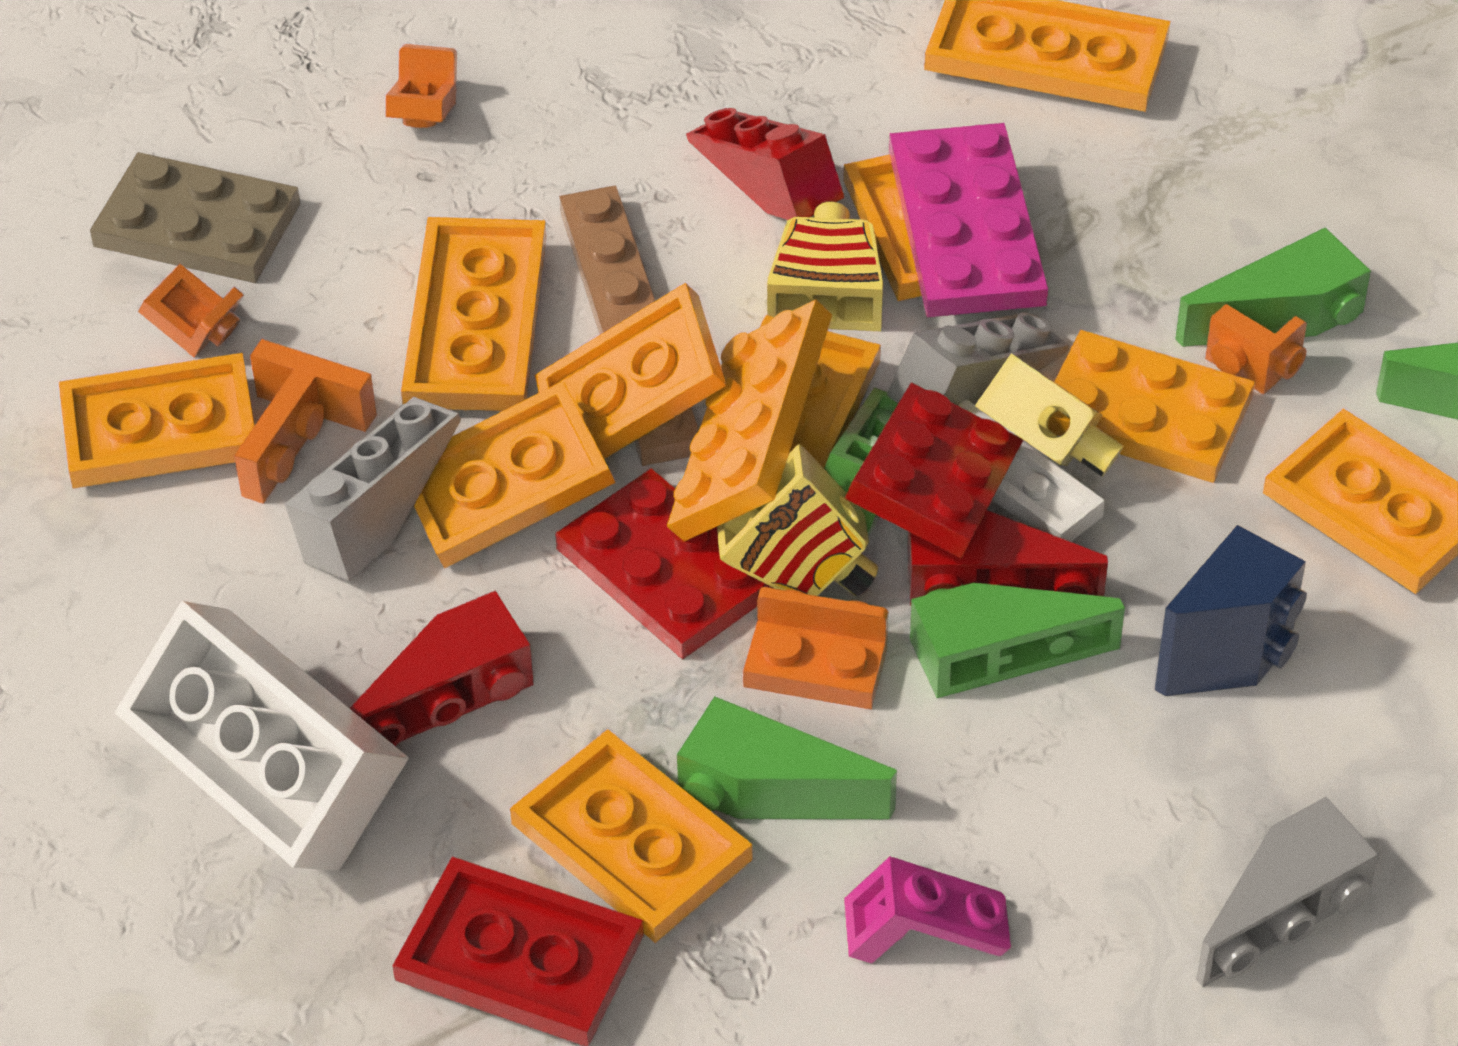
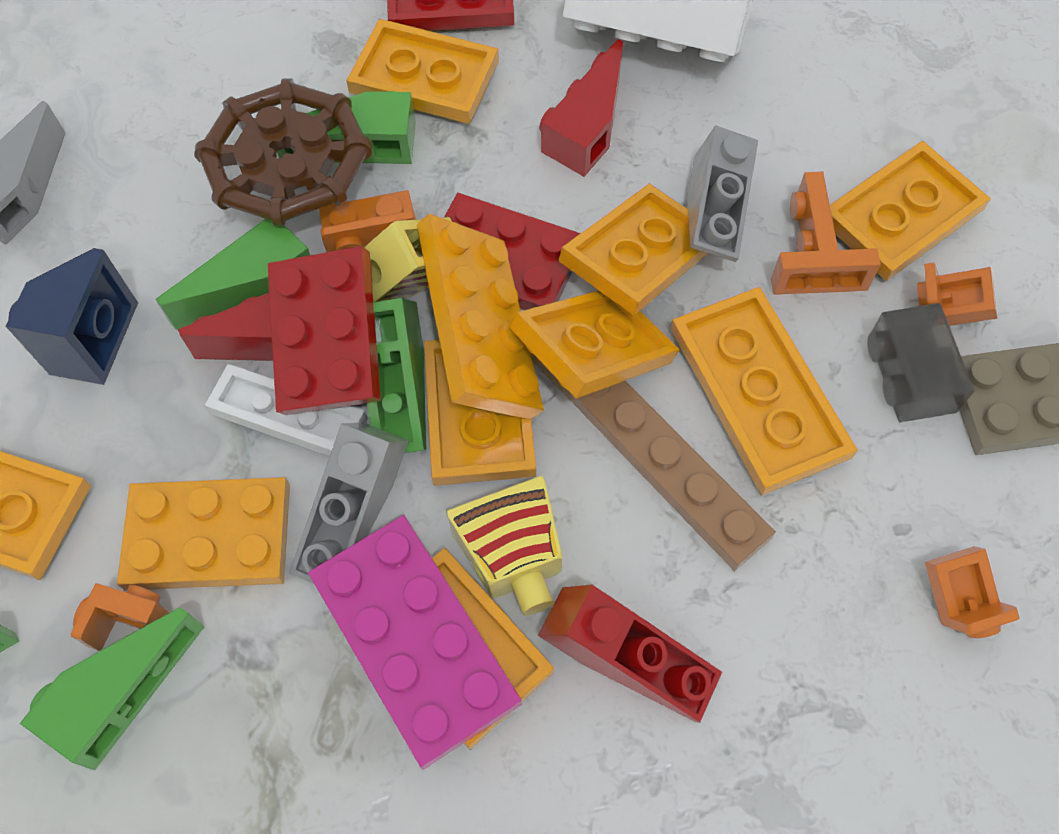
camera: 155 degrees right, 15 degrees up
(294, 269) = (919, 363): none -> clear smoke brick
(891, 680) = (277, 130): none -> reddish brown plate
(917, 898) = (228, 74): dark pink bracket -> none
(1025, 401) = (268, 439): light yellow torso -> none

